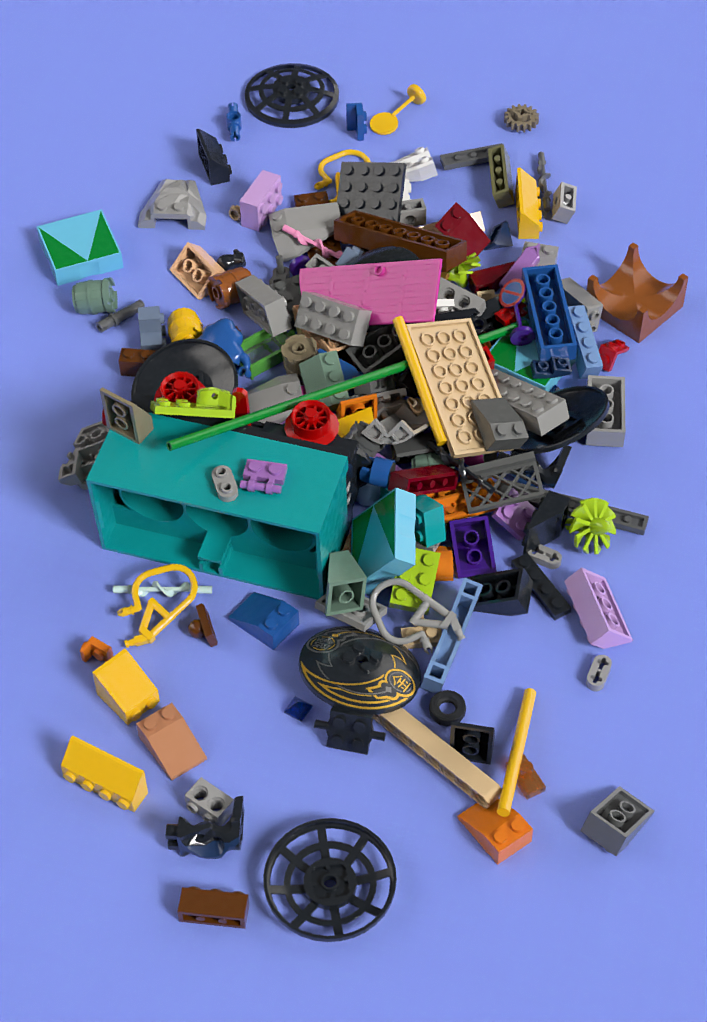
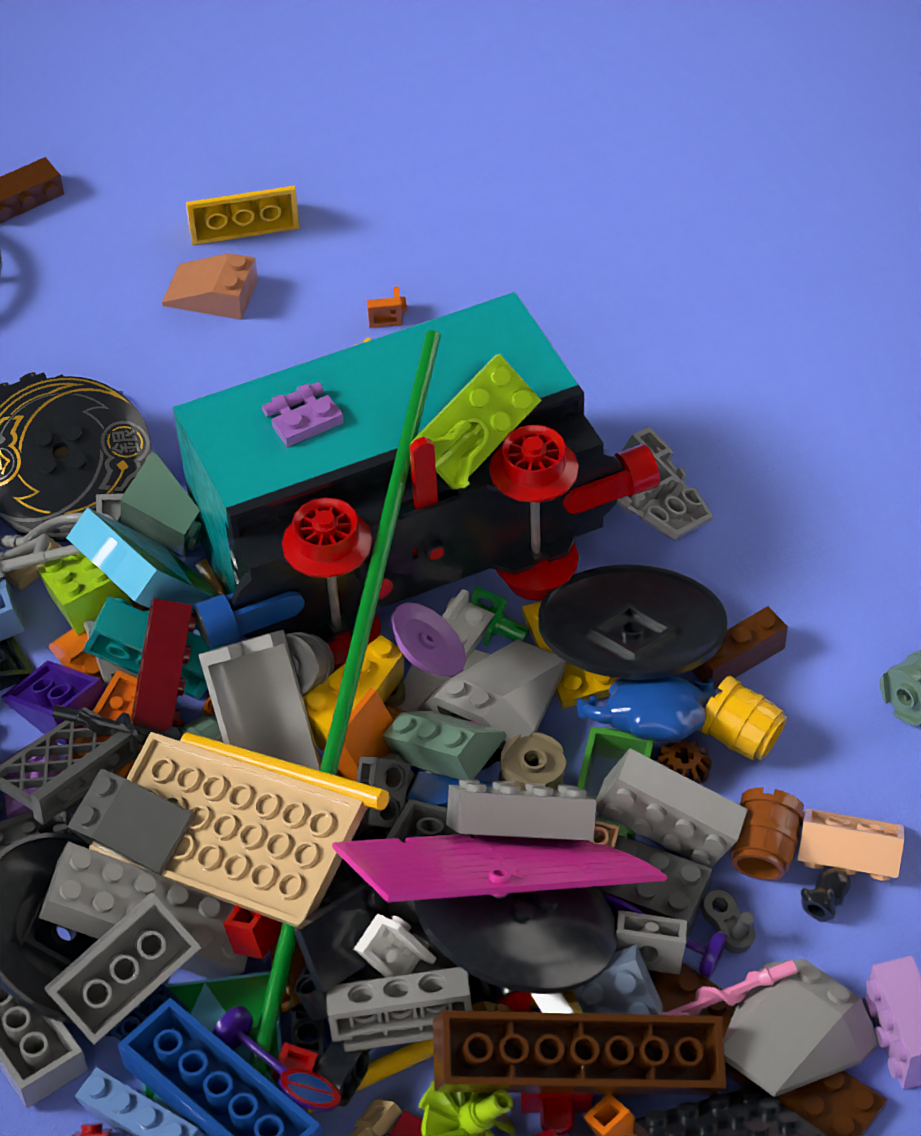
camera: 140 degrees right, 0 degrees up
(117, 317) = (868, 687): dark grey pin -> none
(125, 417) = (534, 333): dark tan slope -> none
(125, 687) = (309, 290): yellow slope -> none
(151, 328) = (789, 685): sand blue brick -> none
(207, 838) = (88, 212): black hips -> none
(212, 800) = (111, 261): light grey brick -> none
(224, 479) = (343, 379): light grey plate -> none
(551, 370) = (122, 968): none -> light grey brick

